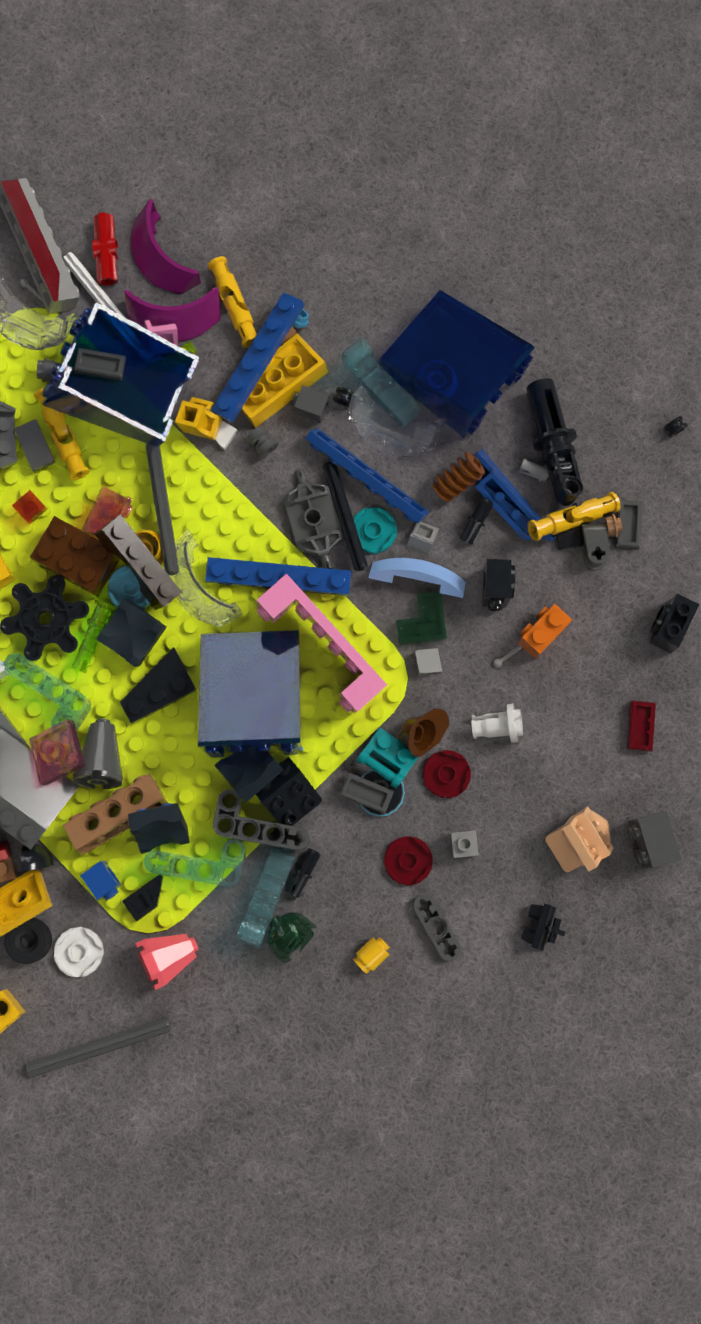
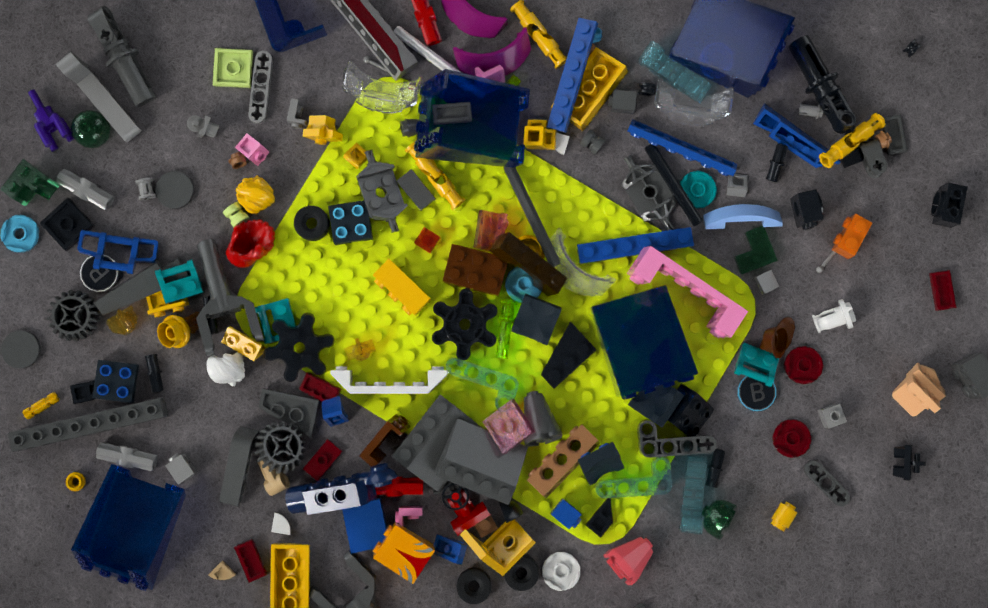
camera: 10 degrees left, 5 degrees up
(366, 793) = (748, 395): dark grey tile -> none
(459, 478) = (756, 132): dark orange piece -> none

